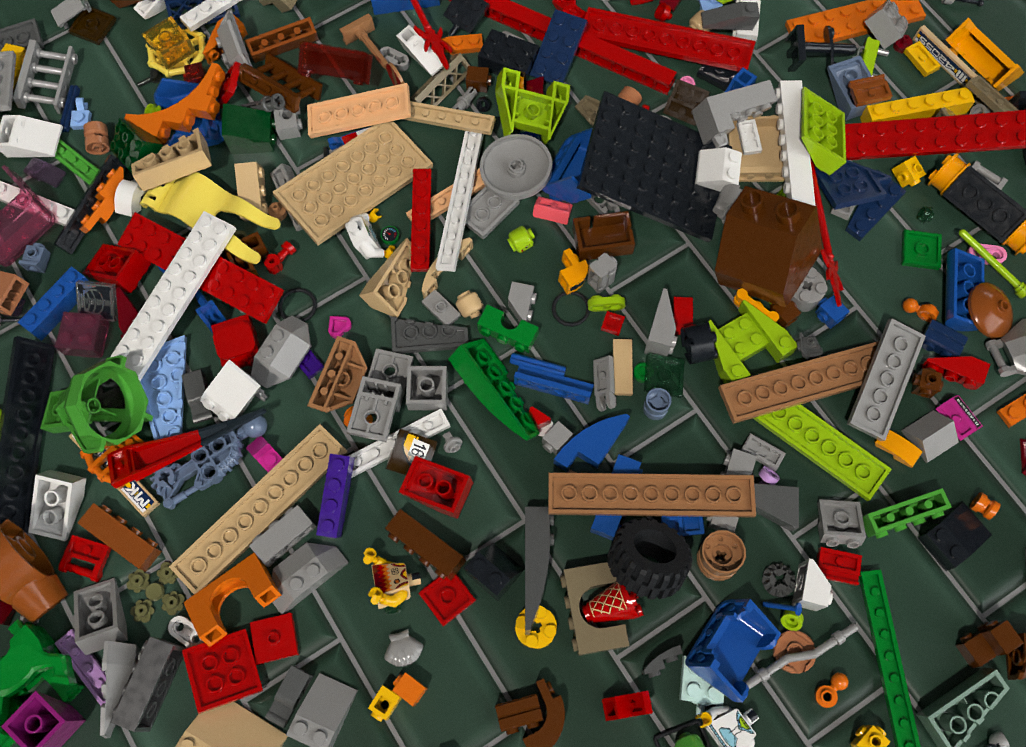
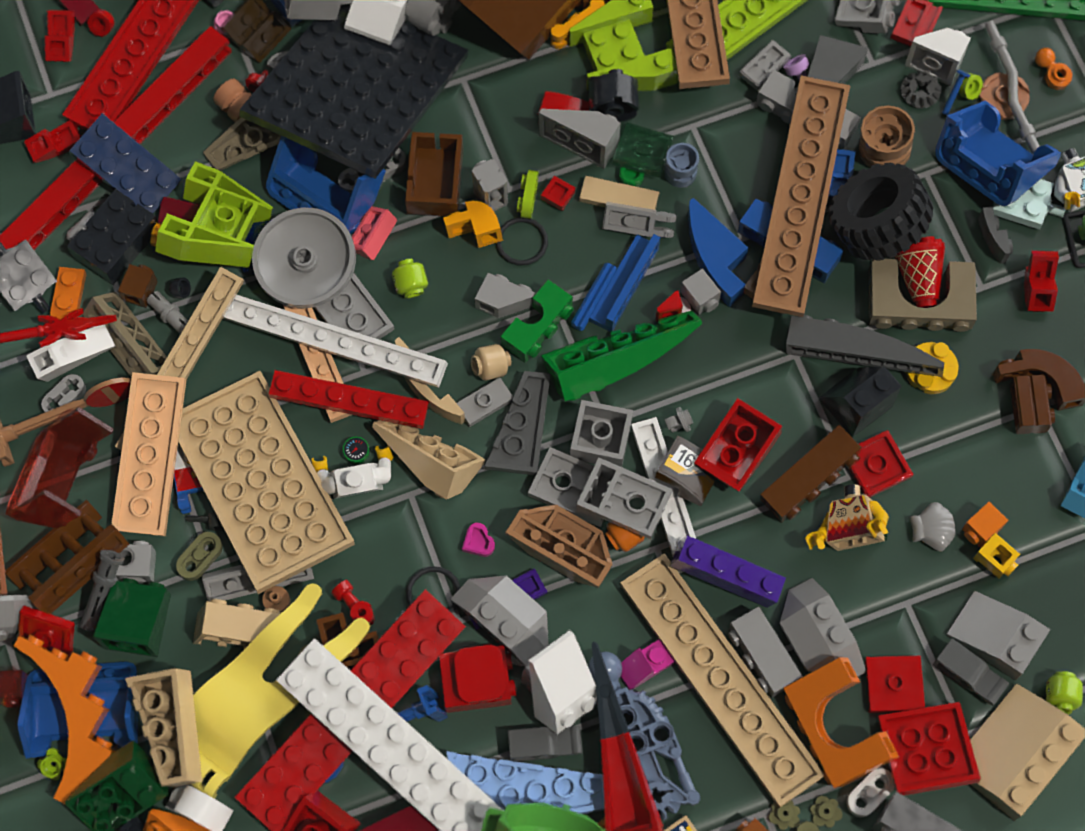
camera: 80 degrees left, 0 degrees up
(300, 158) = (197, 555): none -> olive plate

